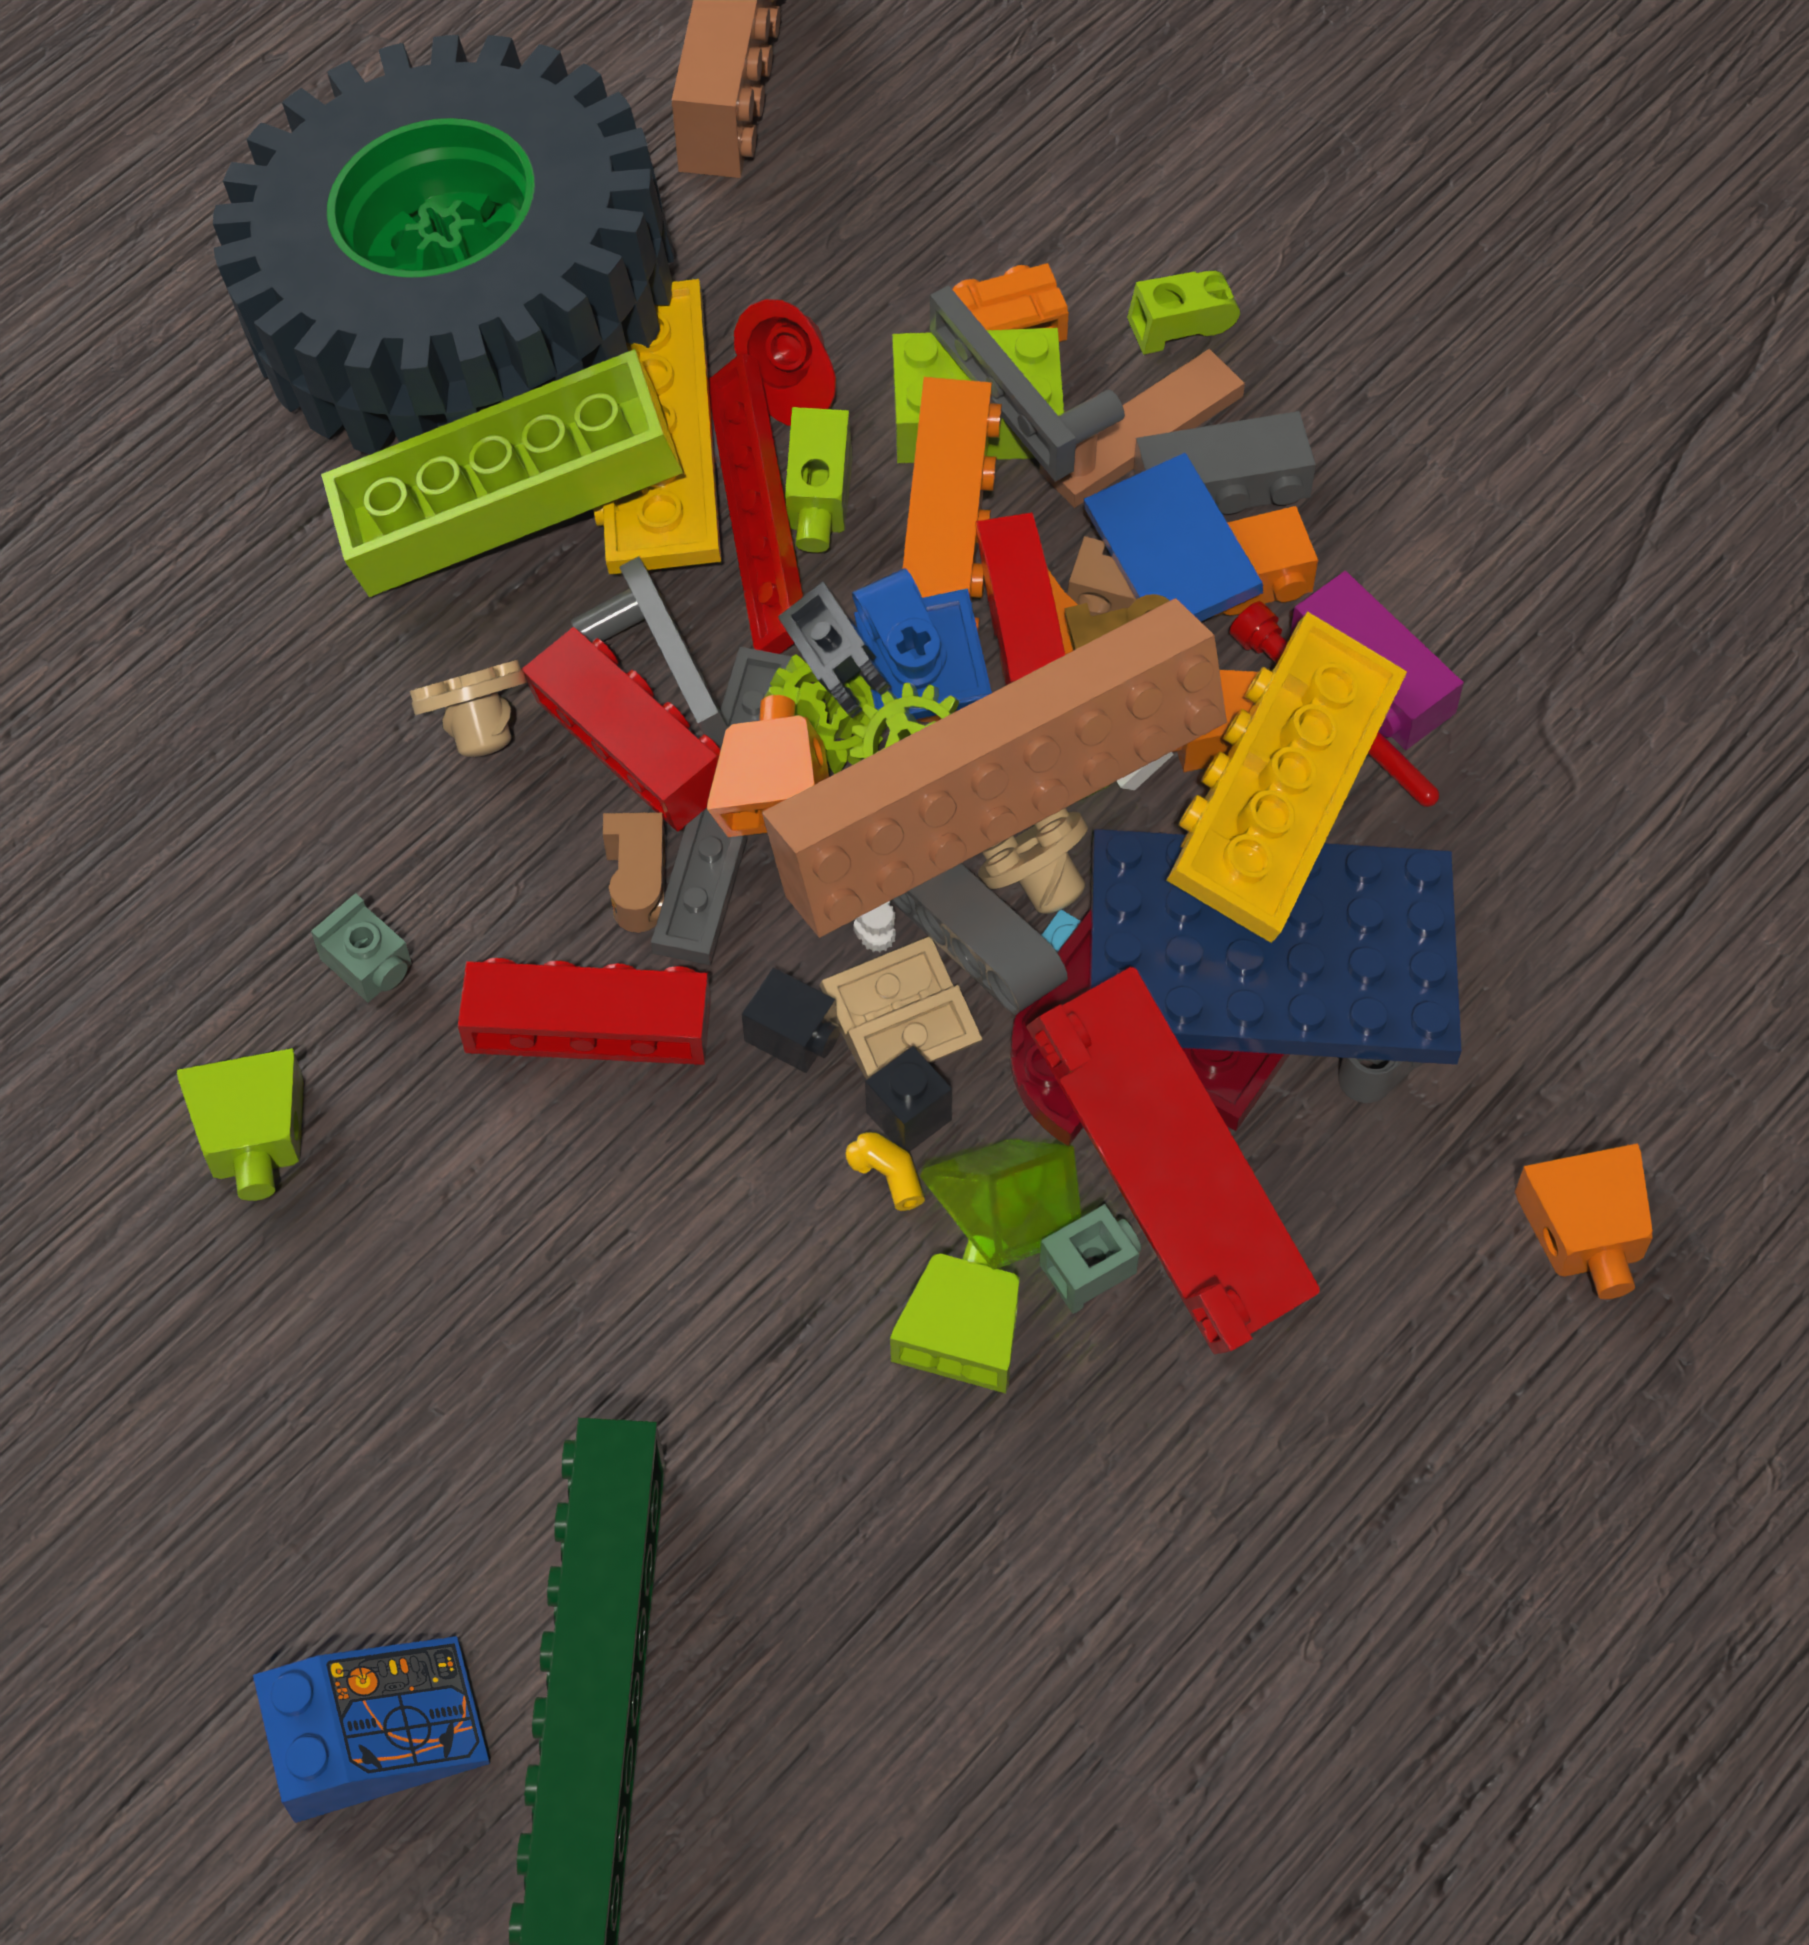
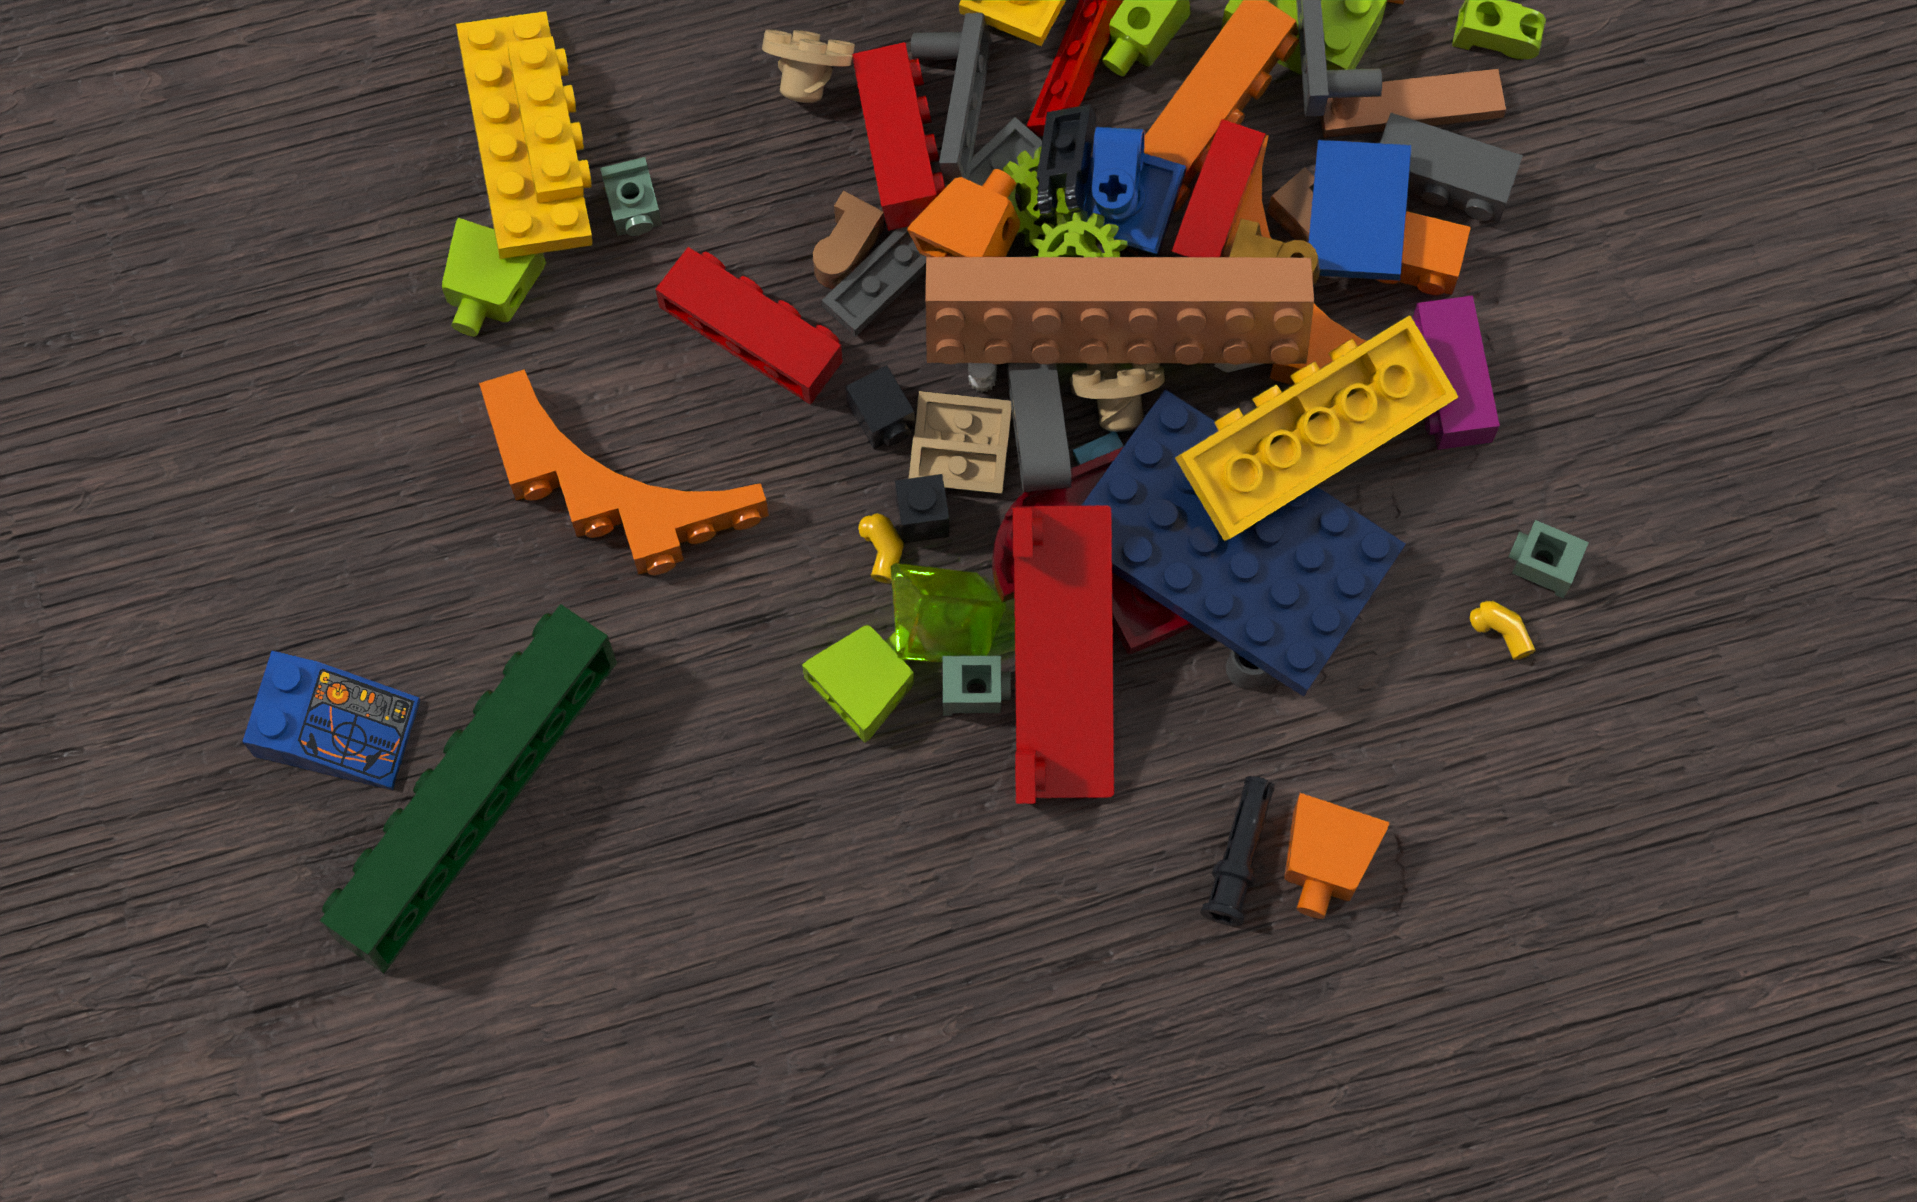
camera: 30 degrees right, 10 degrees up
(201, 942) = (526, 134): none -> yellow plate
(527, 1292) = (597, 498): none -> orange arch
(1258, 630) = (1389, 304): red piece -> none
(1505, 1295) = (1234, 872): none -> black pin
(1600, 789) = (1561, 550): none -> sand green brick
(1604, 880) = (1505, 622): none -> yellow arm

